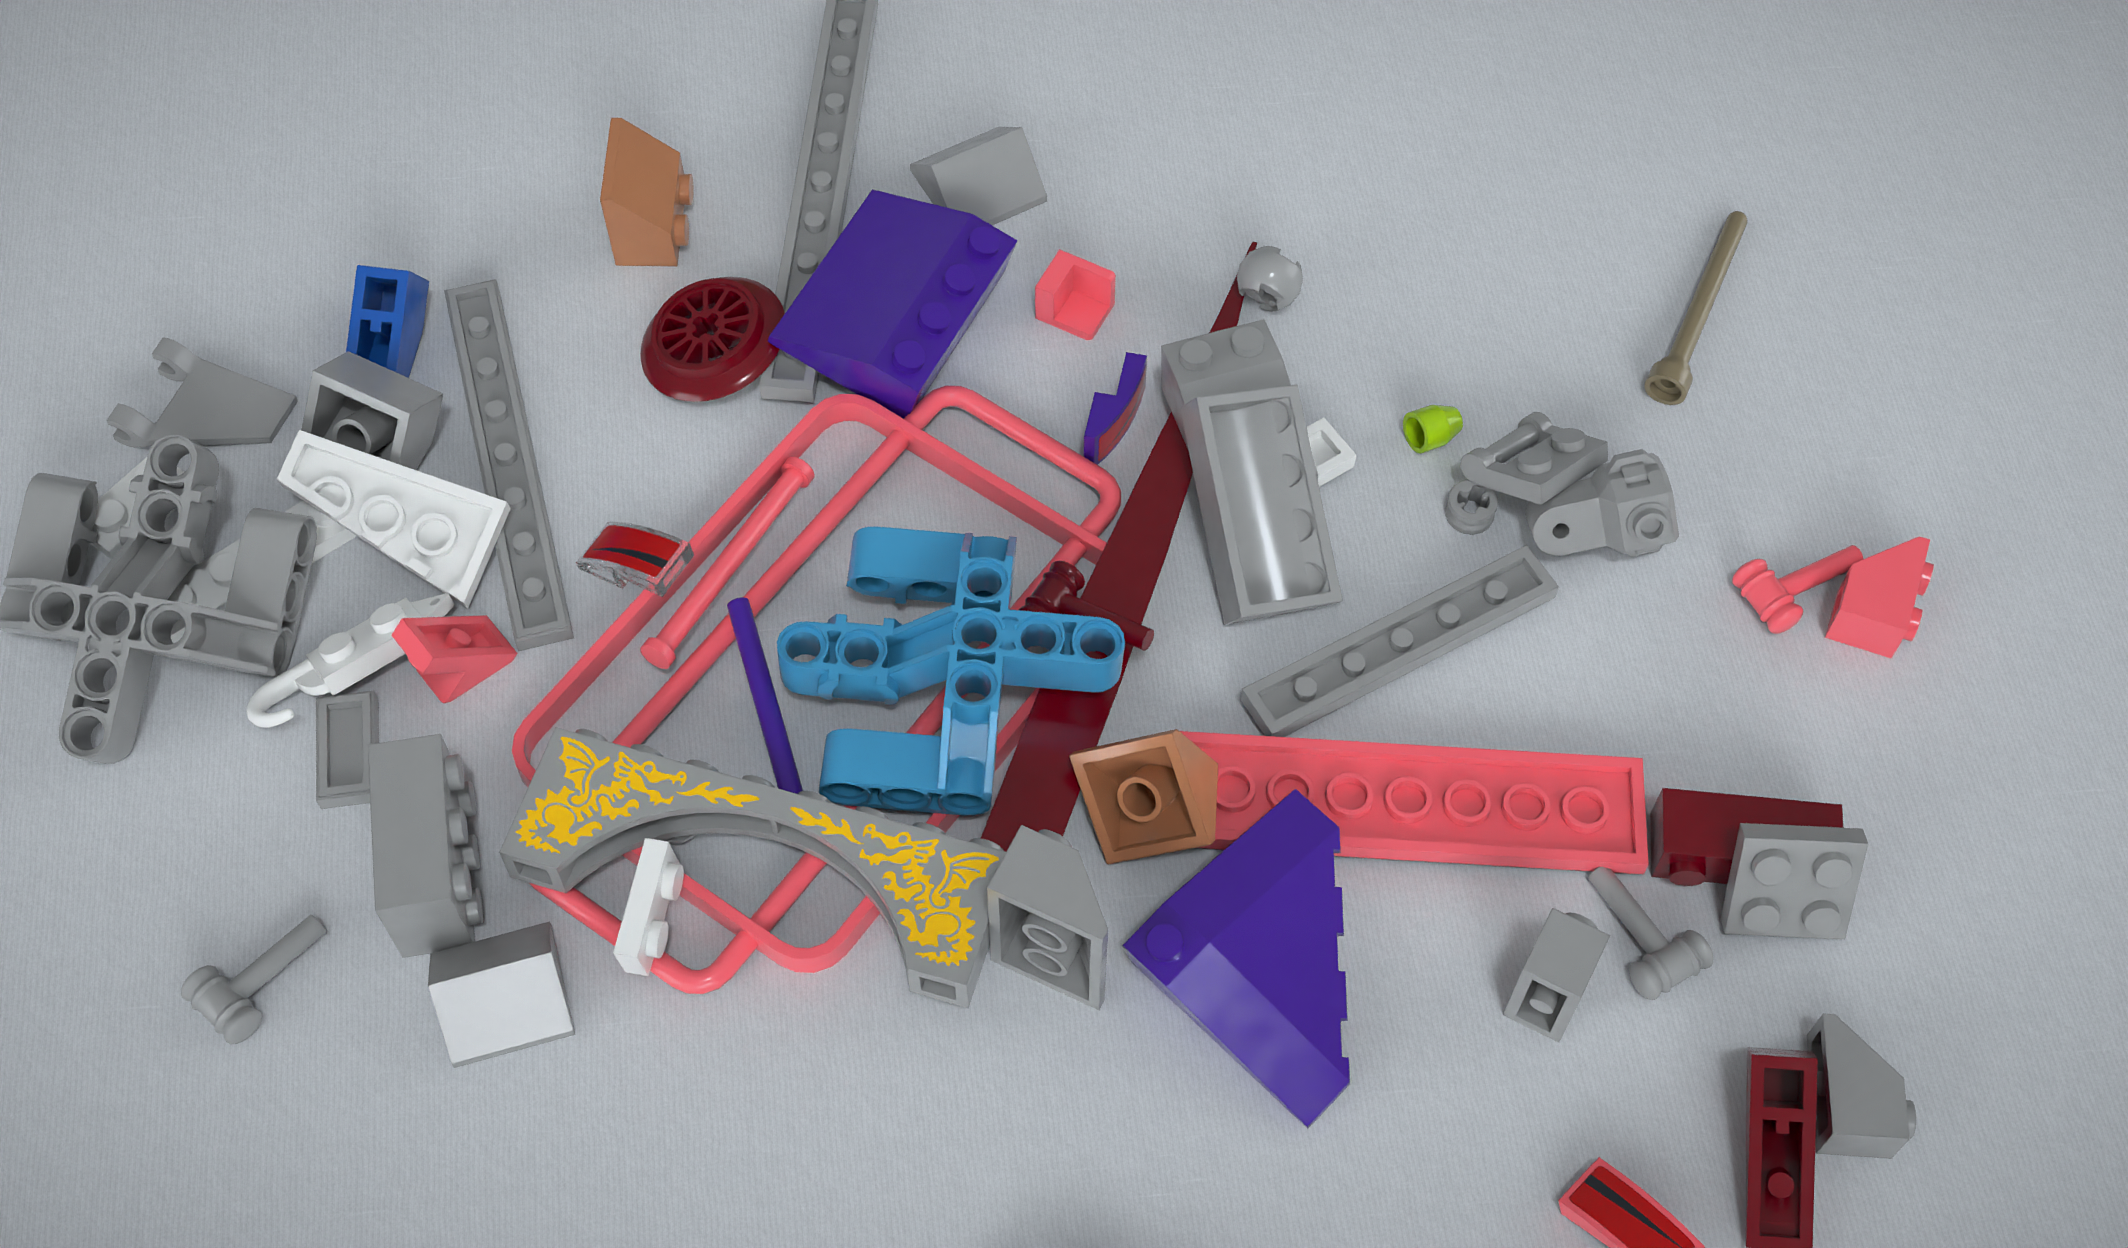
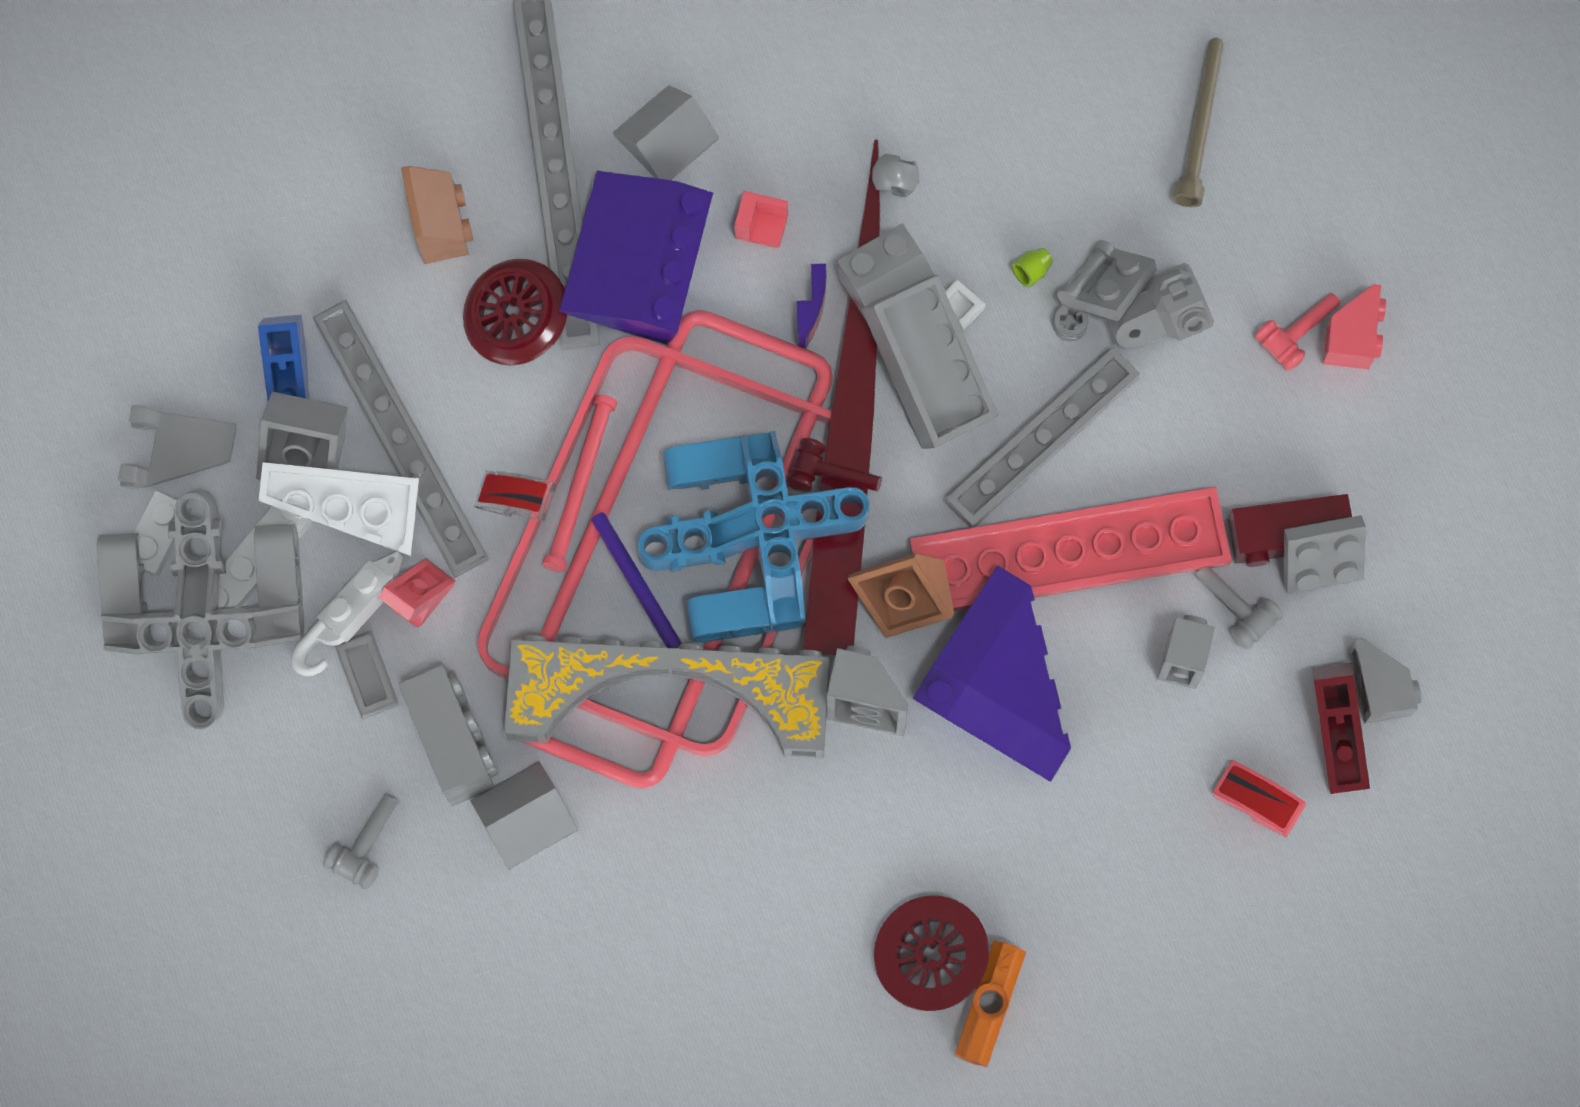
camera: 10 degrees left, 15 degrees up
(643, 927) = (606, 727): white plate -> none

